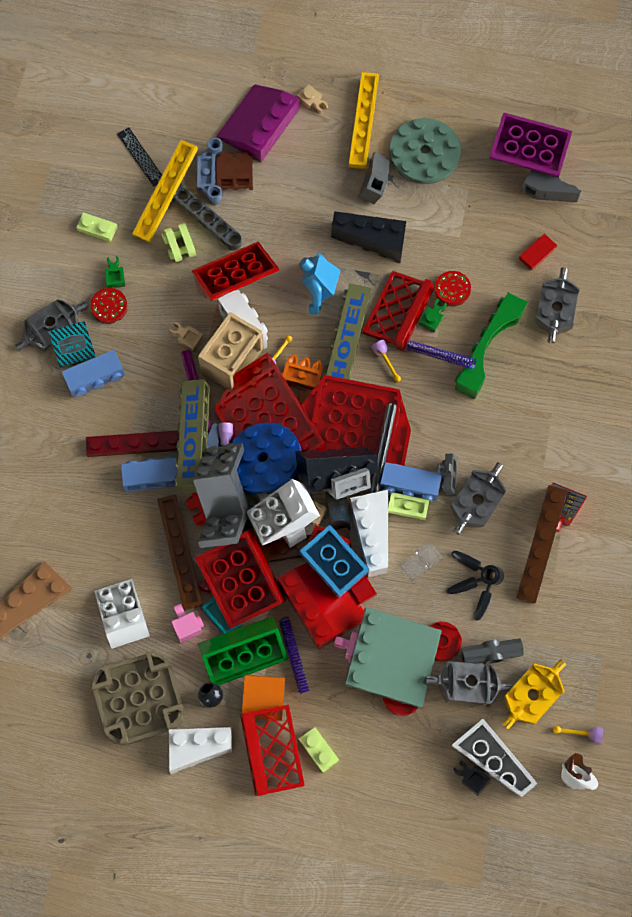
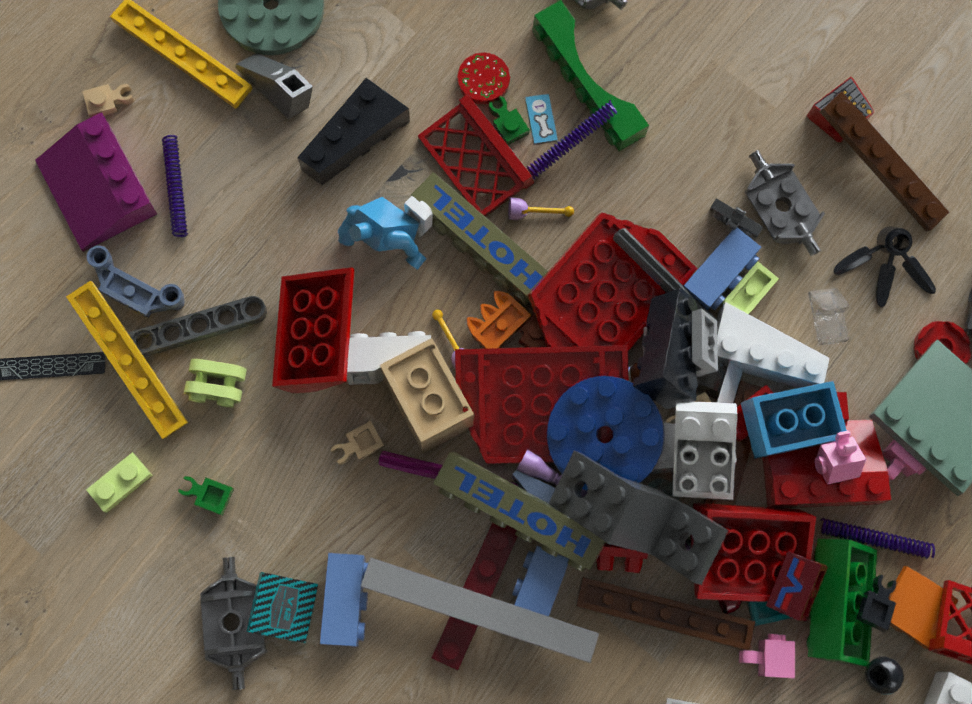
camera: 65 degrees left, 5 degrees up
(109, 305) = (250, 526): red tile -> none
(124, 444) = (480, 610): none -> light grey tile
(234, 171) = (151, 253): copper plate -> none
(234, 615) = (797, 586): none -> dark red panel
(246, 668) = (876, 607): none -> black plate
(275, 166) = (178, 207): none -> dark purple piece
(323, 598) = (840, 459): none -> bright pink brick
(337, 521) = (730, 384): none -> white sticker
(340, 293) = (420, 212): none -> white plate
(448, 334) = (541, 118): none -> medium azure sticker

